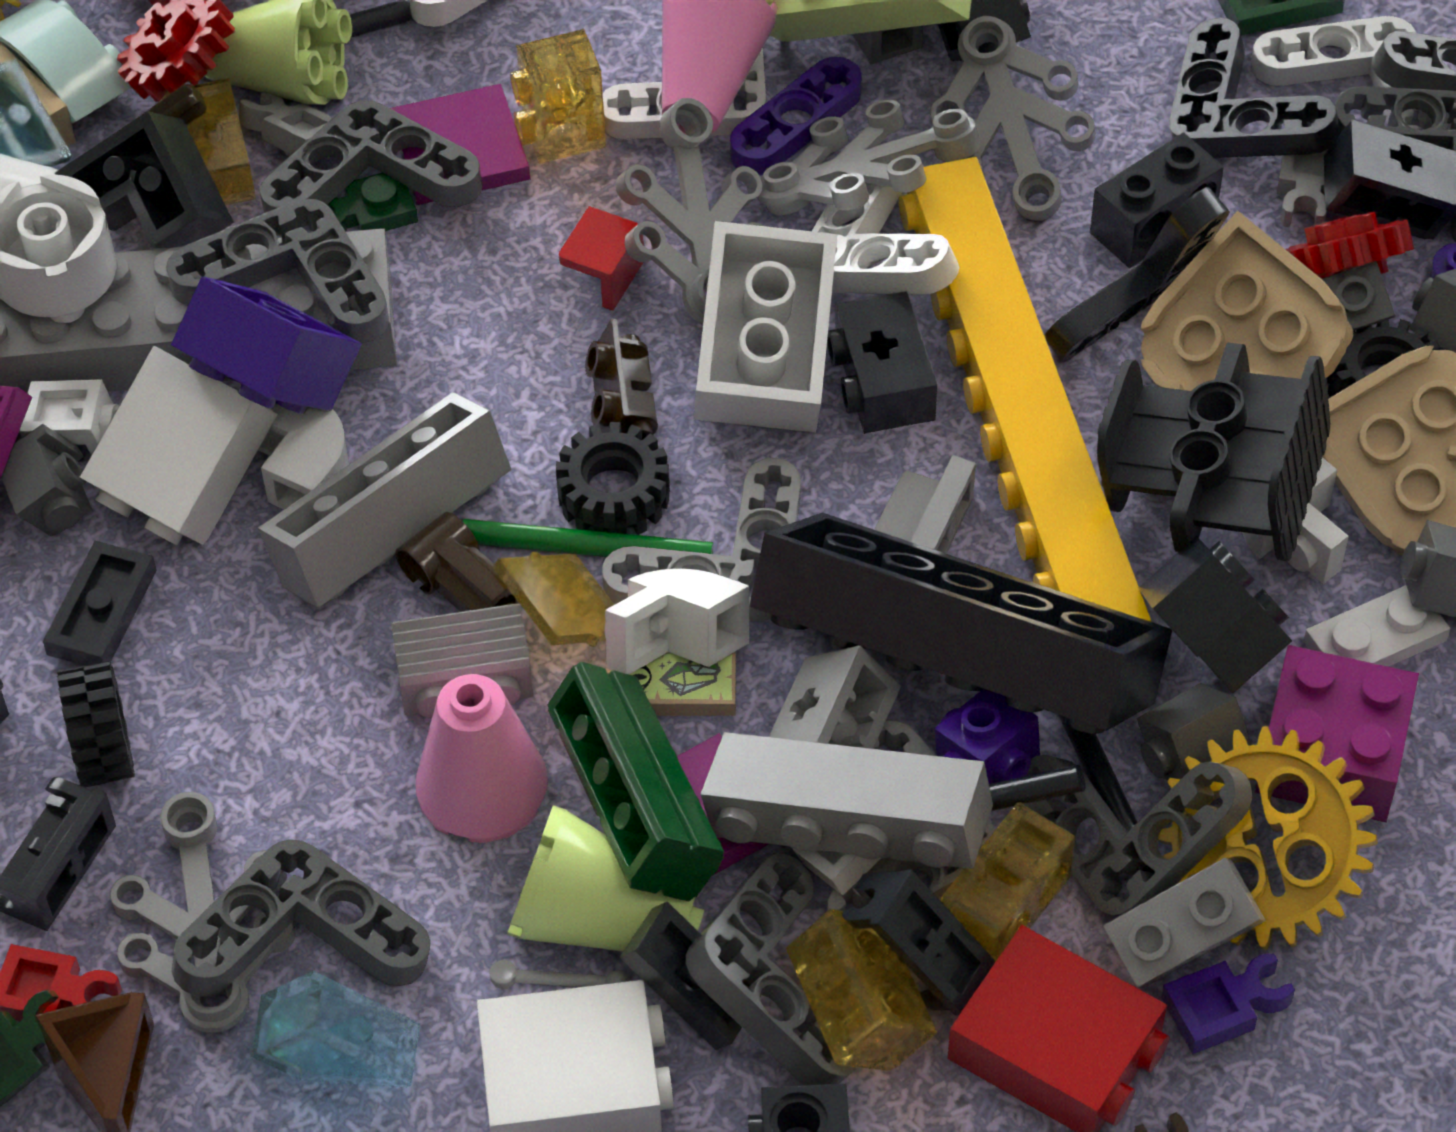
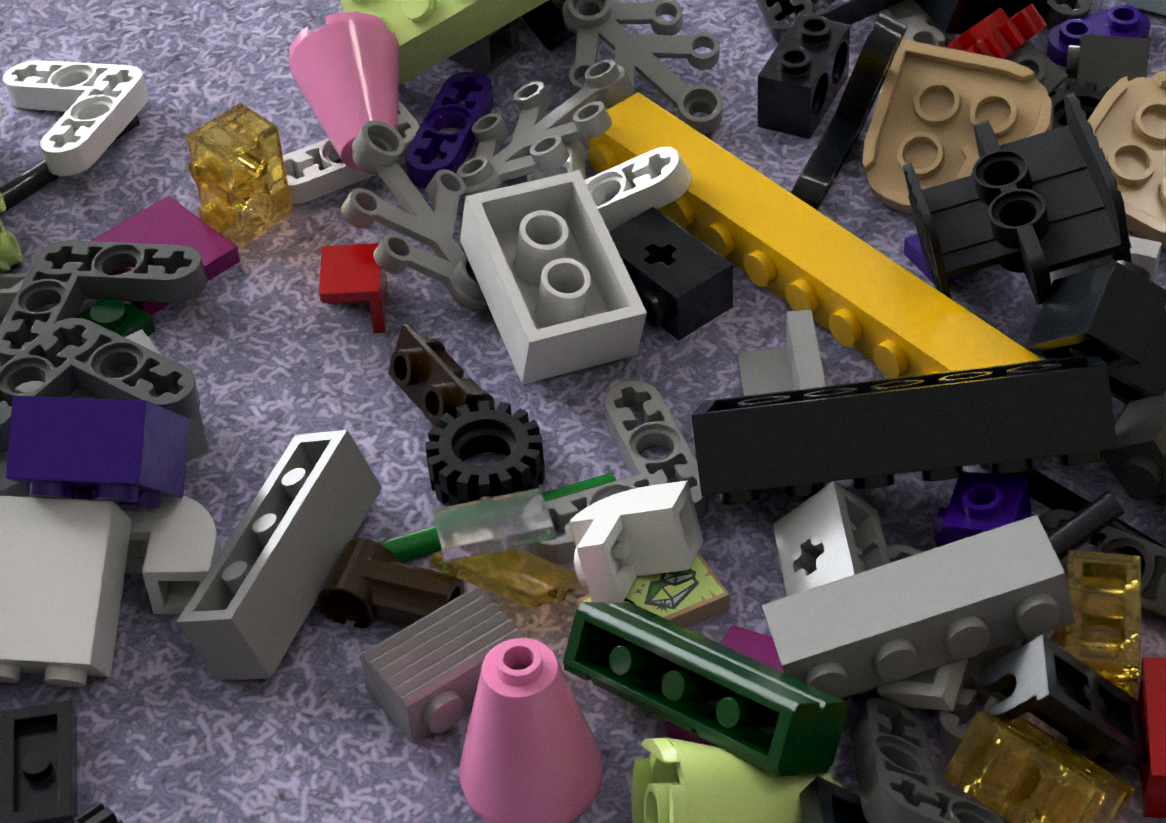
camera: 25 degrees left, 10 degrees down
(568, 551) = (493, 524): none -> clear piece

